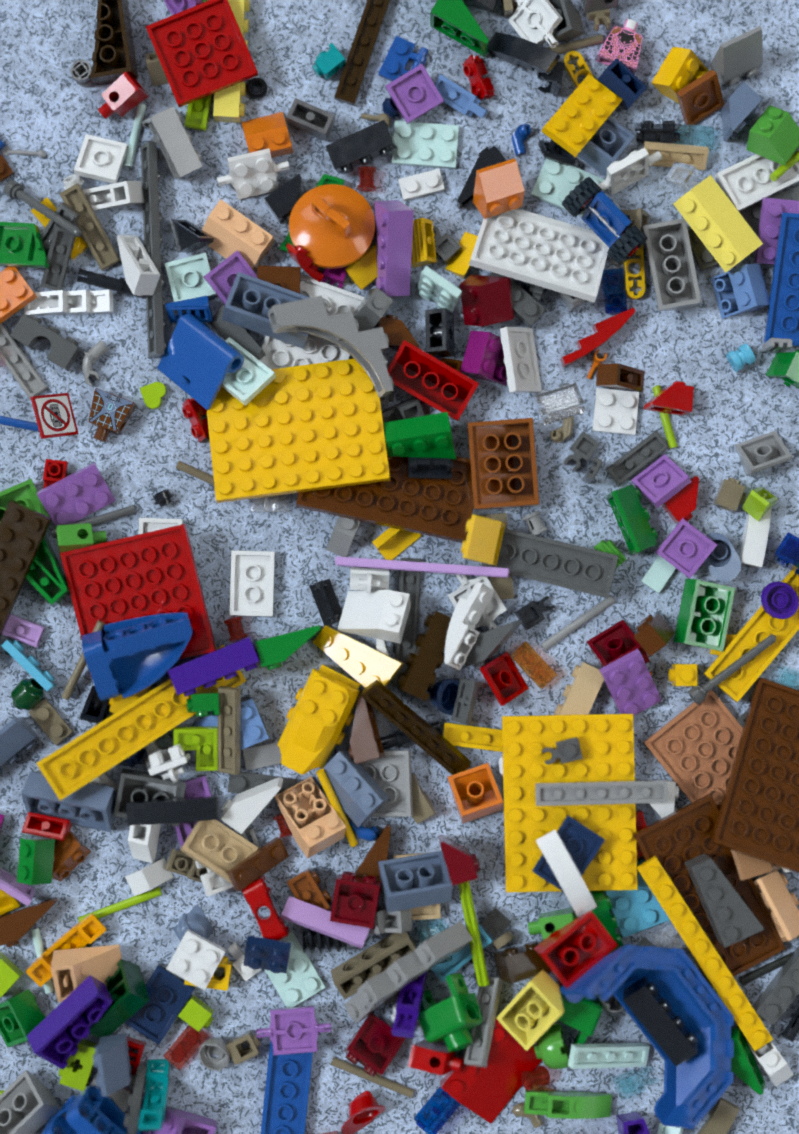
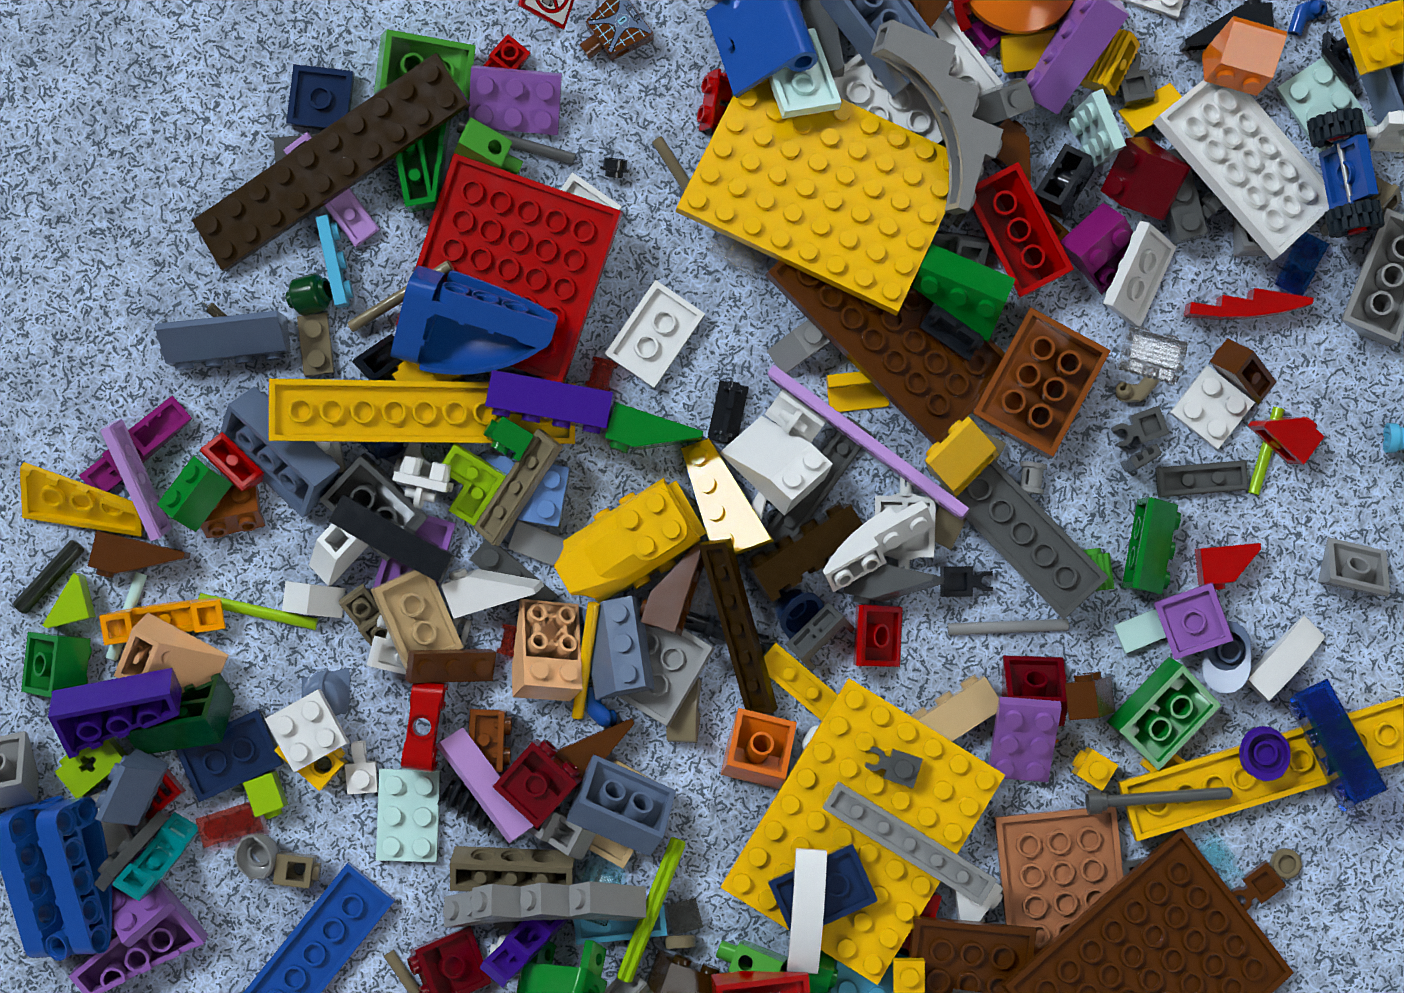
camera: 30 degrees right, 0 degrees up
(152, 394) = (680, 39): lime tile -> none
(266, 954) = (393, 778): dark blue plate -> none
(293, 1030) = (367, 887): medium lavender plate -> none
(459, 861) = (689, 816): dark red slope -> none
(533, 665) = (923, 643): clear orange slope -> none
(595, 364) = (1228, 333): orange hand -> none
(640, 283) = (1338, 276): yellow beam -> none
(661, 481) = (1214, 523): medium lavender plate -> none
(730, 495) = (1284, 592): dark tan brick -> none
(759, 502) = (1313, 623): lime slope -> none

